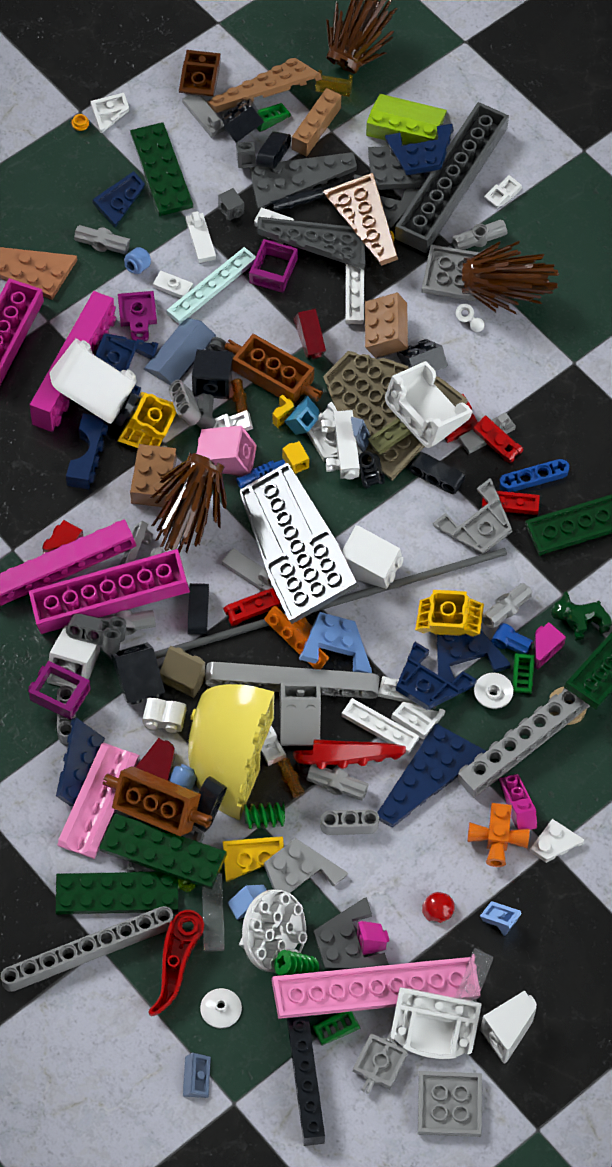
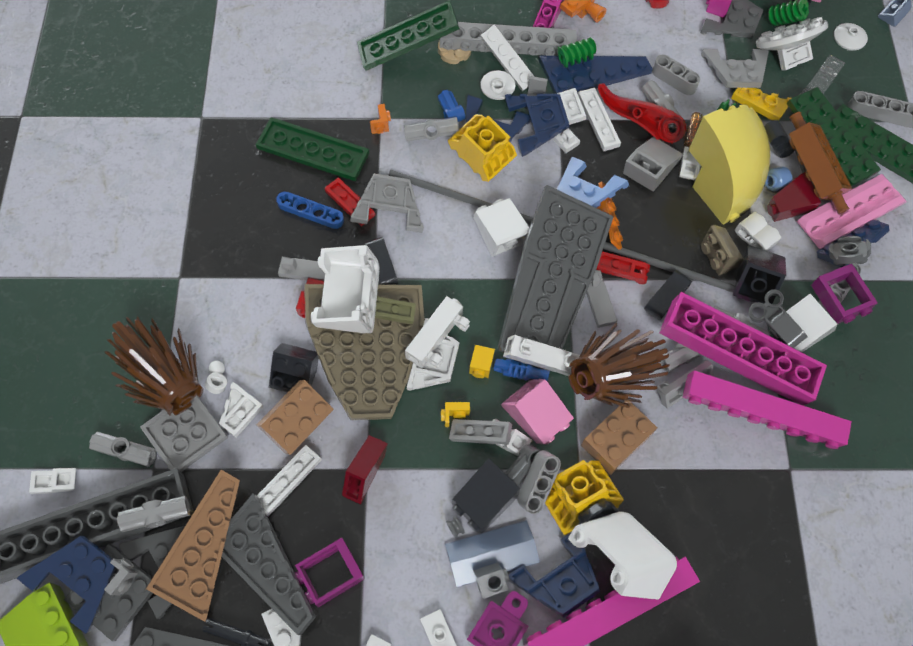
camera: 140 degrees left, 5 degrees up
(62, 534) = (743, 435): red slope -> none
(70, 733) = (850, 250): none -> dark grey plate
(81, 470) = (680, 493): dark blue arch -> none
(166, 330) = (489, 589): none -> brick
(176, 953) = (864, 73): red animal -> none
(211, 285) = (404, 600): light aqua plate -> none
(239, 396) = (478, 458): clear orange pin -> none
(242, 900) = (784, 76): light blue slope -> none
(251, 407) = (480, 431): none -> light grey hinge
(254, 481) = (539, 354): none -> white brick
(270, 678) = (640, 193): light grey beam -> none
(273, 369) = (430, 456): dark orange brick -> none
(303, 417) = (442, 389): dark azure slope -> none
(360, 433) = (416, 325): sand blue slope -> none
(371, 473) = (430, 301): black piece -> none
(395, 172) = (122, 580): none -> light grey bracket
(409, 204) = (153, 514): none -> light grey piece
(431, 310) = (239, 410): none -> white wing
(450, 759) = (577, 51): none -> green piece
(456, 713) = (536, 86): none -> light grey bracket
(497, 439) = (308, 254): red plate -> none
(505, 714) = (507, 57): none -> white plate
(525, 659) = (465, 89): green slope -> none
(547, 643) = (430, 87): dark pink slope -> none
(555, 586) = (381, 125): none -> orange bracket
(581, 615) = (387, 87): dark green animal -> none

